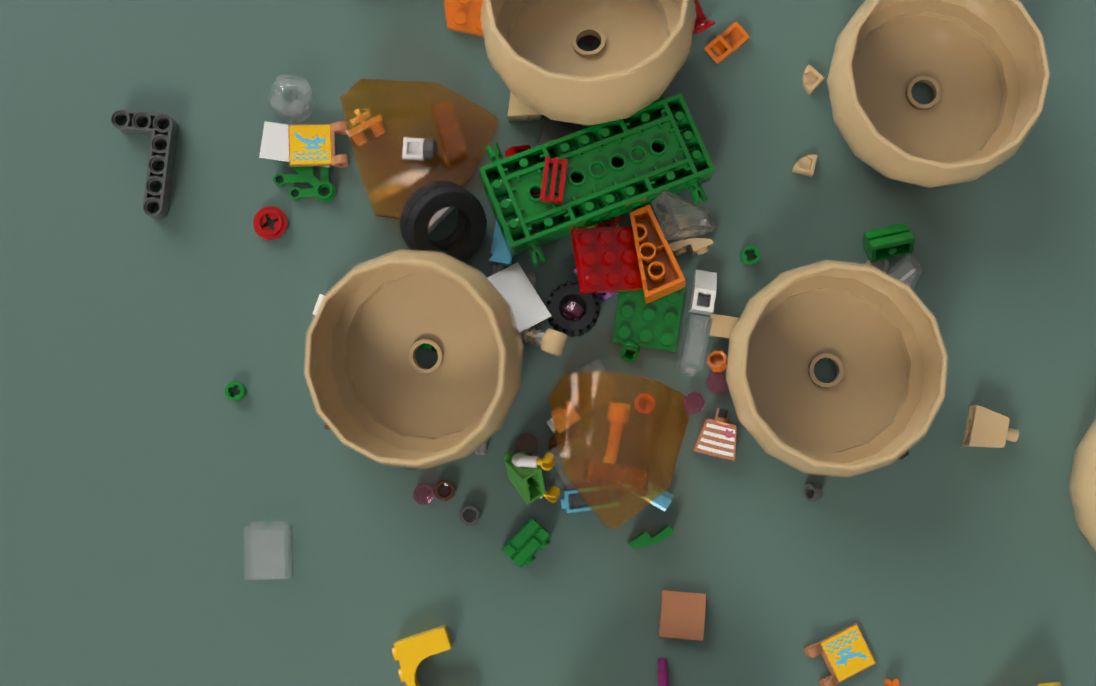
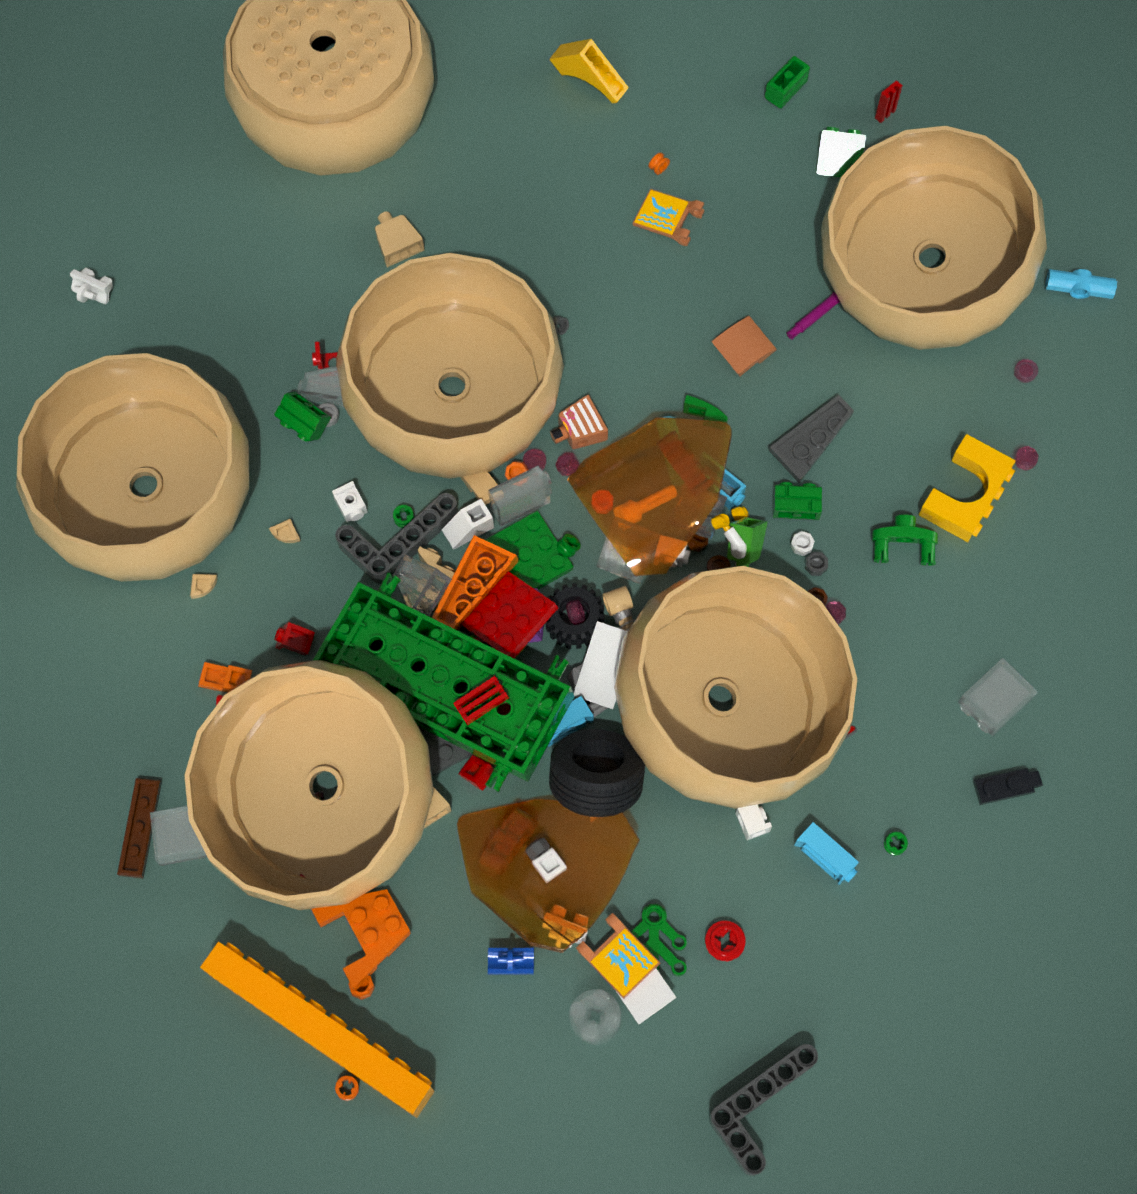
camera: 130 degrees left, 15 degrees down
(207, 502) = (1006, 785): none -> black hinge
(266, 337) = (827, 853): none -> medium azure window
(375, 69) = (510, 961): none -> blue hips
(439, 599) = (905, 532): none -> green connector
(493, 518) = (802, 543): none -> white tile
(566, 594) = (807, 441): none -> dark grey wing
(717, 108) = (294, 638): none -> red bracket
(729, 236) = (399, 542): none -> dark grey beam
(783, 229) = (346, 494): none -> white brick
(926, 293) = (321, 360): none -> red bracket

